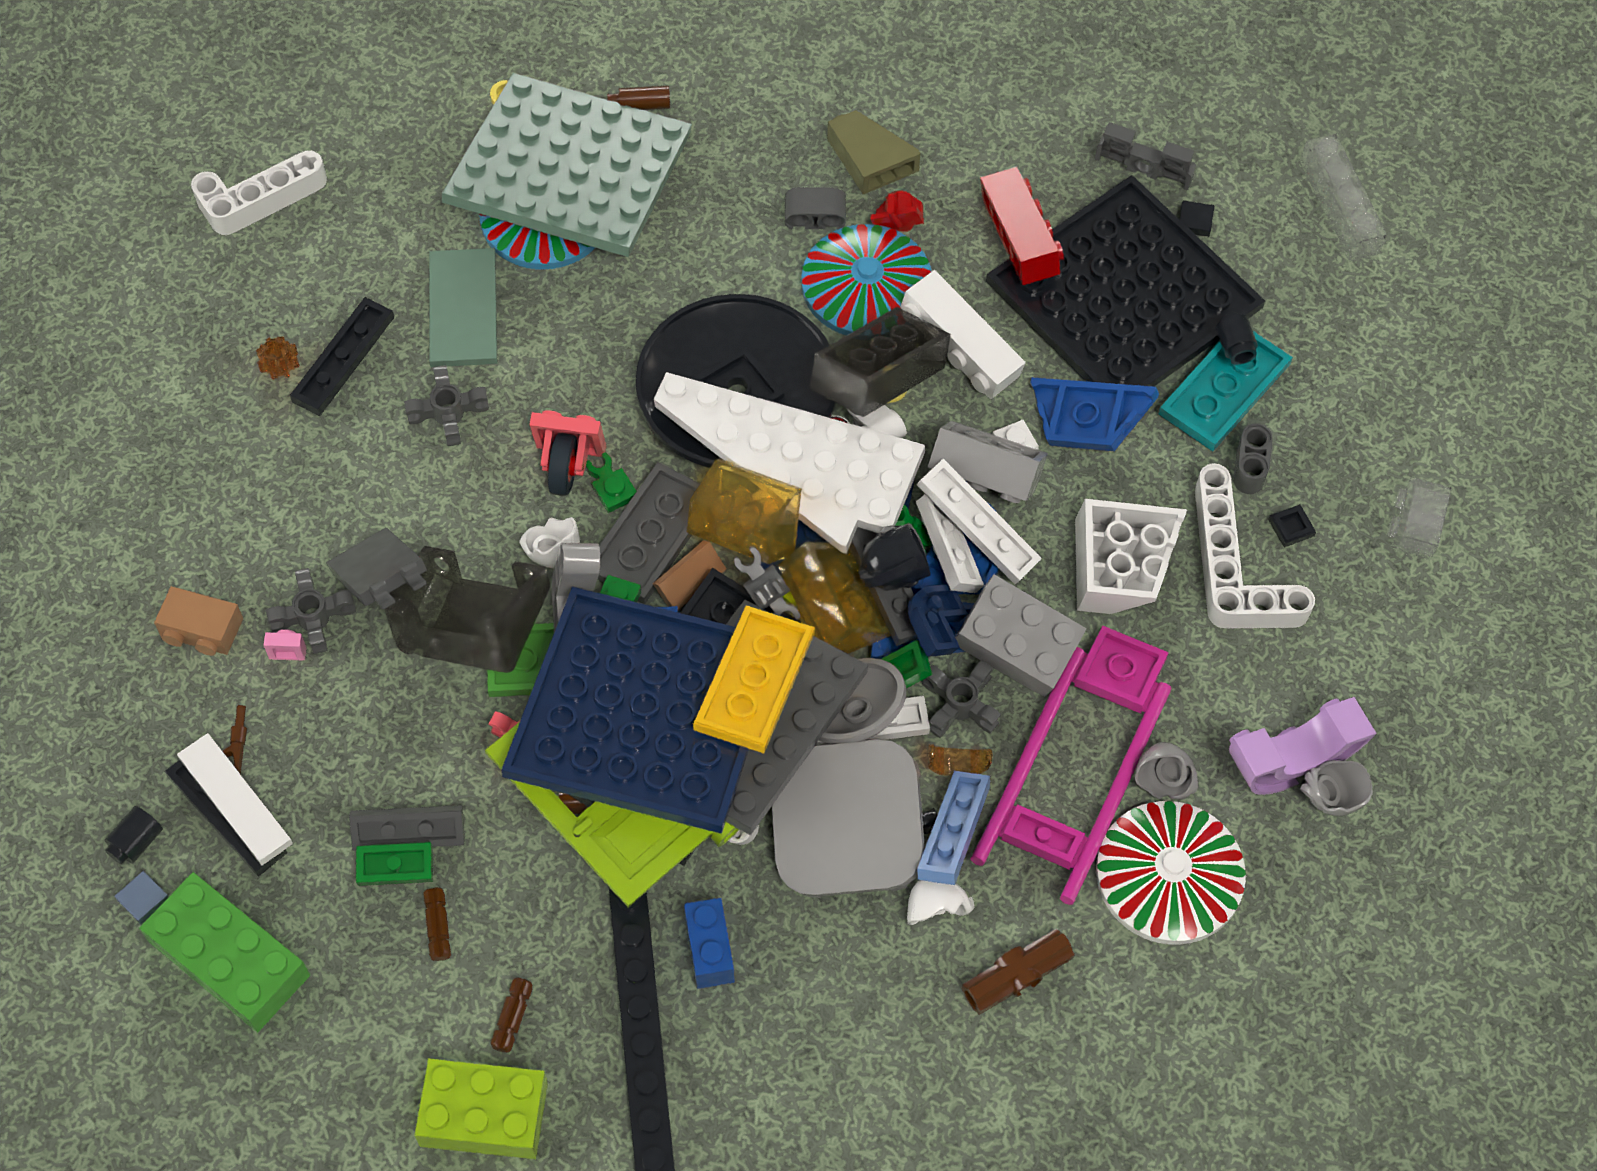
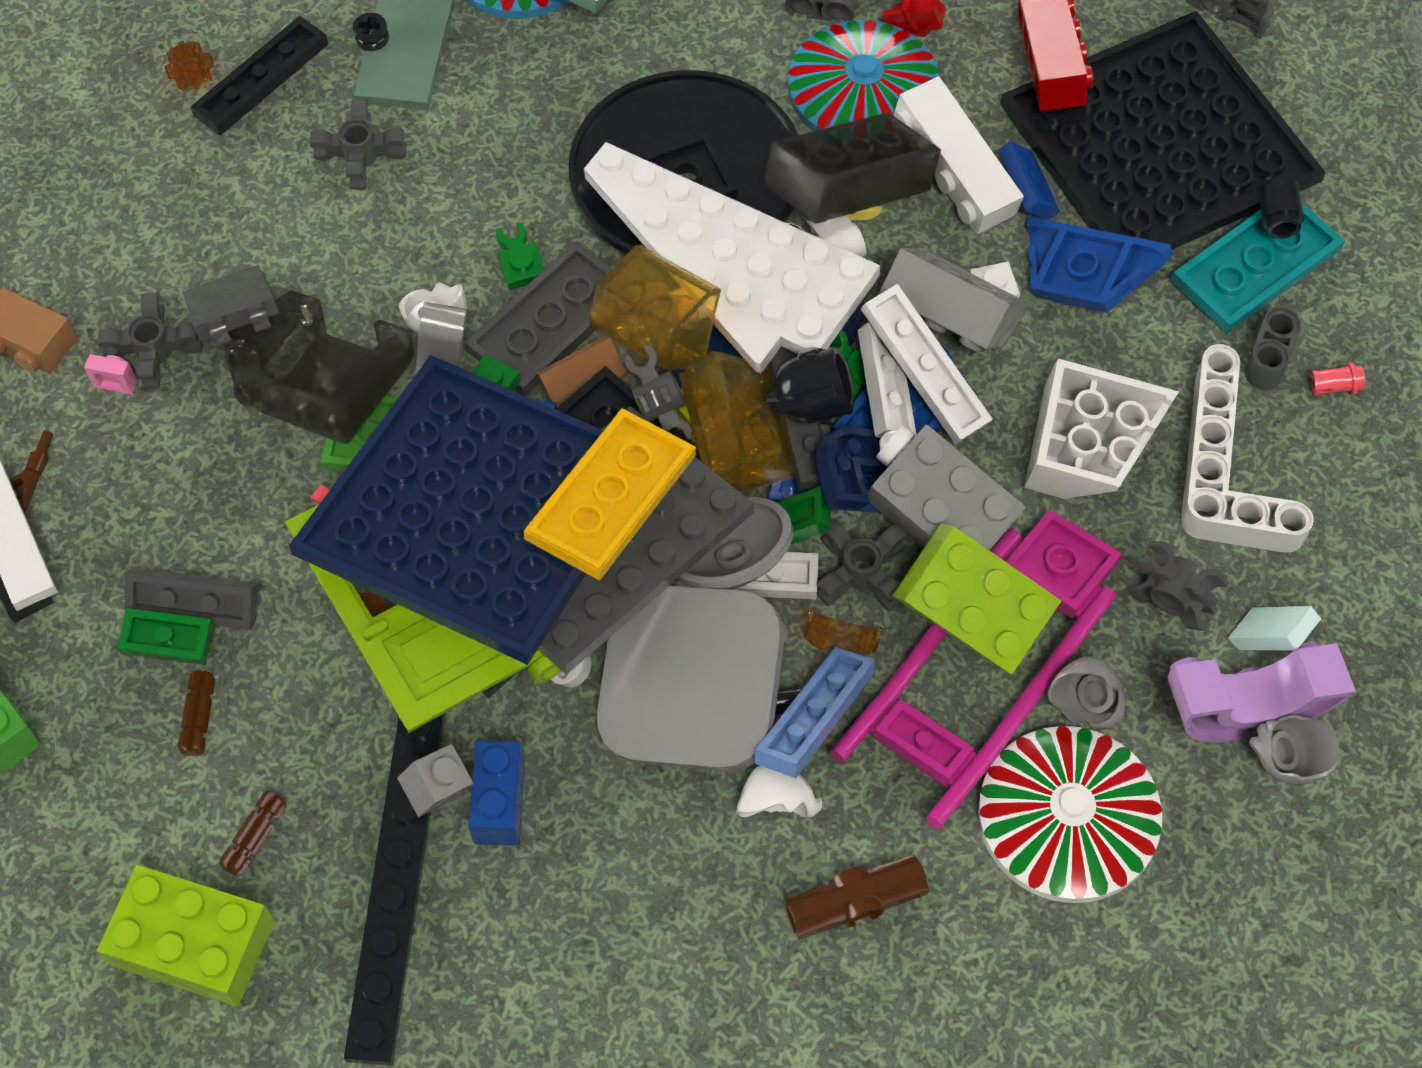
camera: 15 degrees right, 0 degrees up
(440, 306) = (362, 27): none -> black bush
(566, 446) = (474, 207): coral plate -> none
(658, 942) = (435, 780): none -> light grey brick
(969, 594) = (893, 444): none -> white tile
(1022, 341) = (1028, 177): none -> blue plate
(1063, 711) = (976, 598): none -> lime brick
(1197, 217) = (1264, 69): black tile -> none
(1219, 671) = (1178, 585): none -> dark grey pin
(1292, 525) = (1305, 433): black tile -> none
(1301, 692) = (1274, 628): none -> light aqua tile
(1309, 476) = (1337, 380): none -> coral pin

